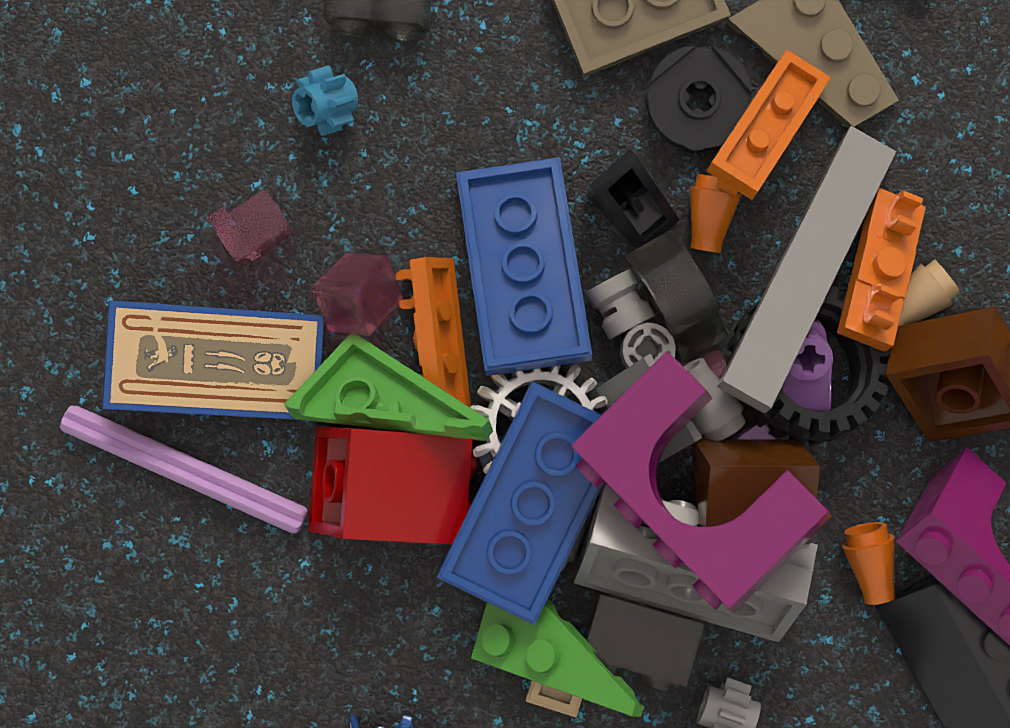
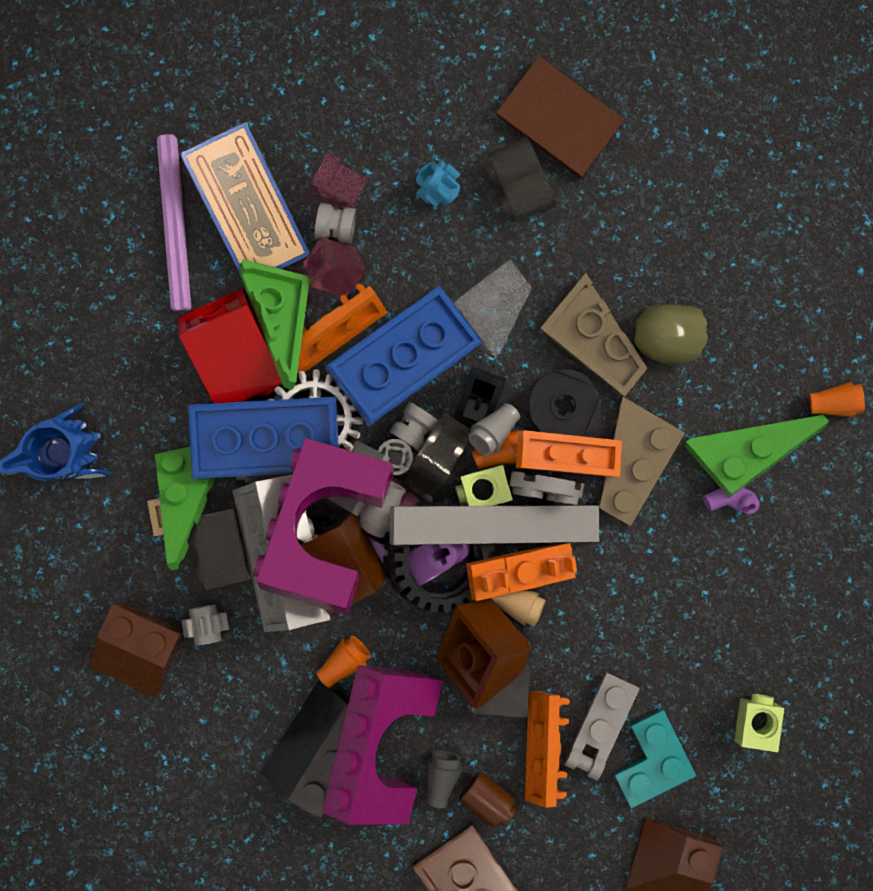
camera: 60 degrees right, 0 degrees up
(302, 260) = (335, 223): none -> light grey wheel
(521, 115) = (495, 305): none -> clear wing
(684, 204) = (491, 432): none -> light grey cone
(762, 238) = (498, 480): none -> yellowish green brick
(795, 178) = (557, 489): none -> light grey plate

